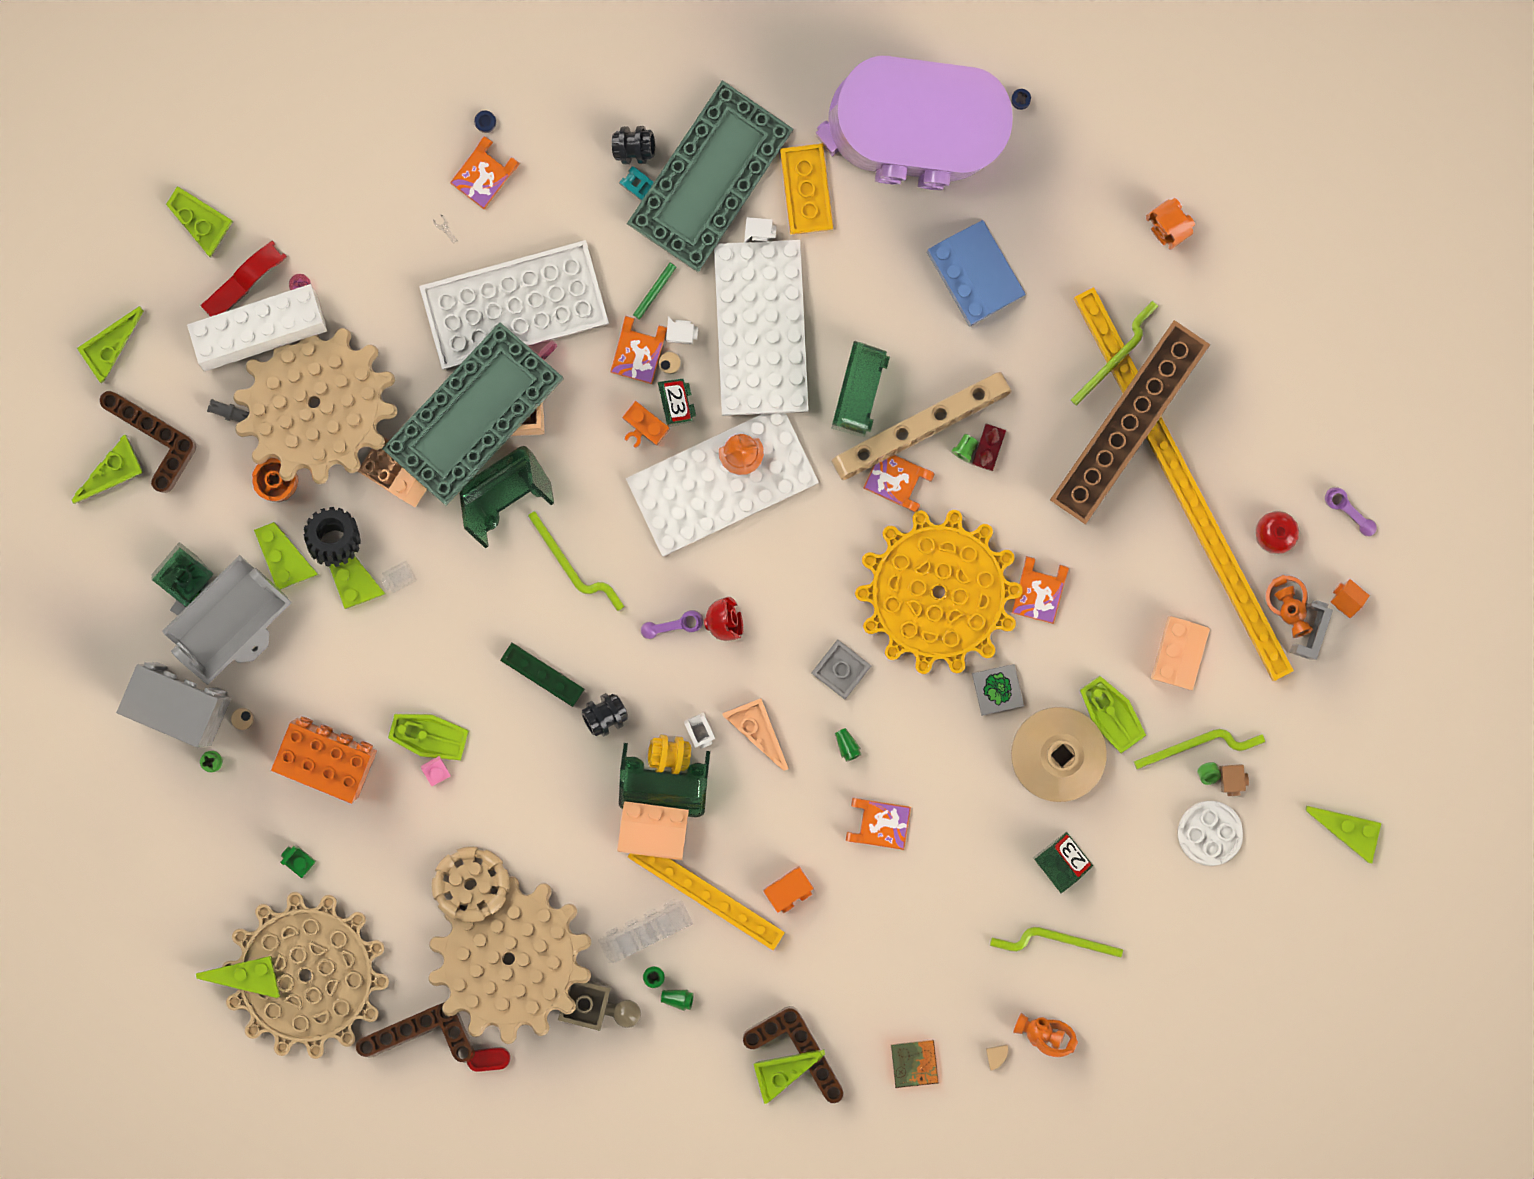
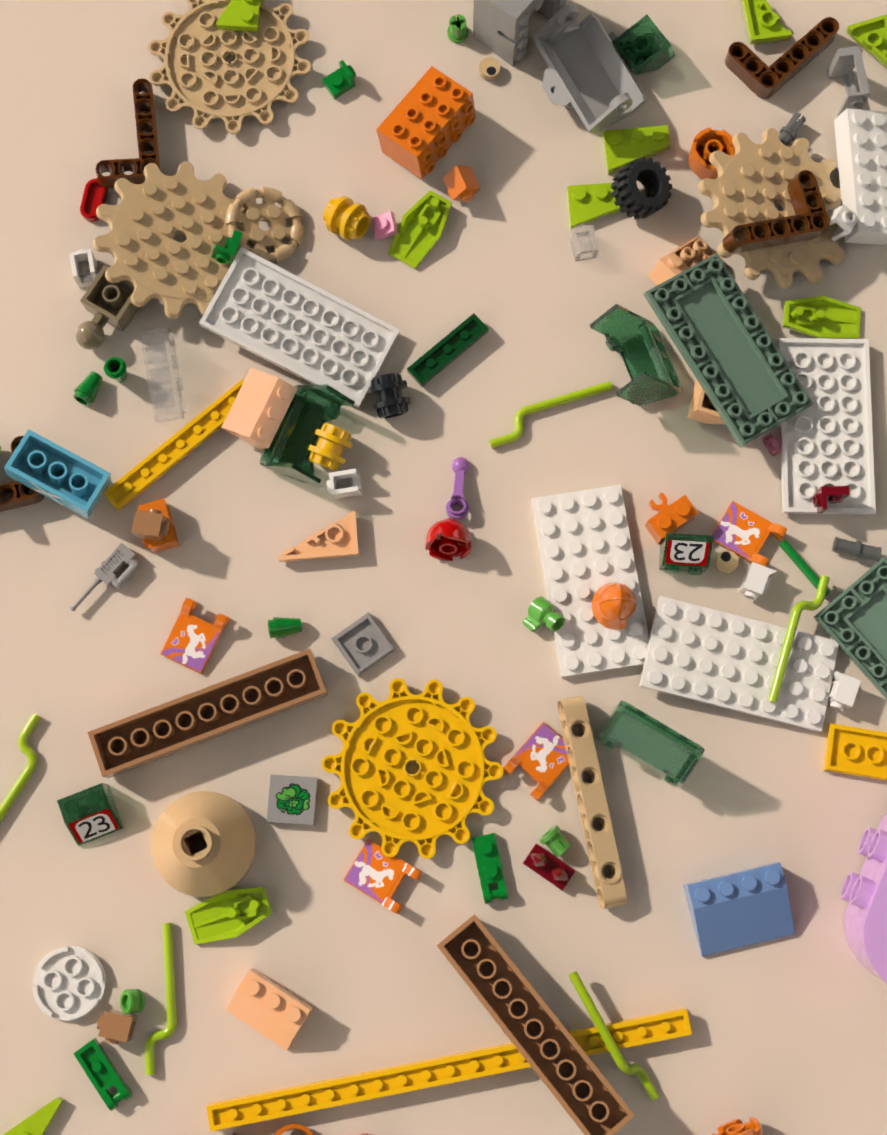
camera: 105 degrees right, 10 degrees down
(144, 370) = (843, 66): none -> light grey panel
(314, 340) = (844, 218): none -> white window
(341, 391) = (807, 224): none -> reddish brown beam
(374, 709) = (461, 183): none -> orange brick
(408, 333) = (822, 318): none -> lime piece
(442, 804) = (346, 218): none -> yellow piece
(504, 906) = (227, 254): none -> green bracket
(561, 1042) = (83, 267): none -> white window
(563, 818) = (298, 326): none -> white plate
(582, 283) = (833, 494): none -> dark red bracket
(624, 248) = (856, 549): none -> dark grey pin
(739, 290) = (790, 634): none -> lime piece
(765, 515) = (542, 612): none -> bright green piece
(771, 992) = (58, 474): none -> medium azure brick
(793, 892) = (150, 525): none -> medium nougat brick
(843, 922) = (108, 569): none -> light grey piece
(945, 786) = (207, 713): none -> medium nougat brick
(1004, 499) = (489, 867): none -> green plate
(1275, 778) = (102, 1073): none -> green plate

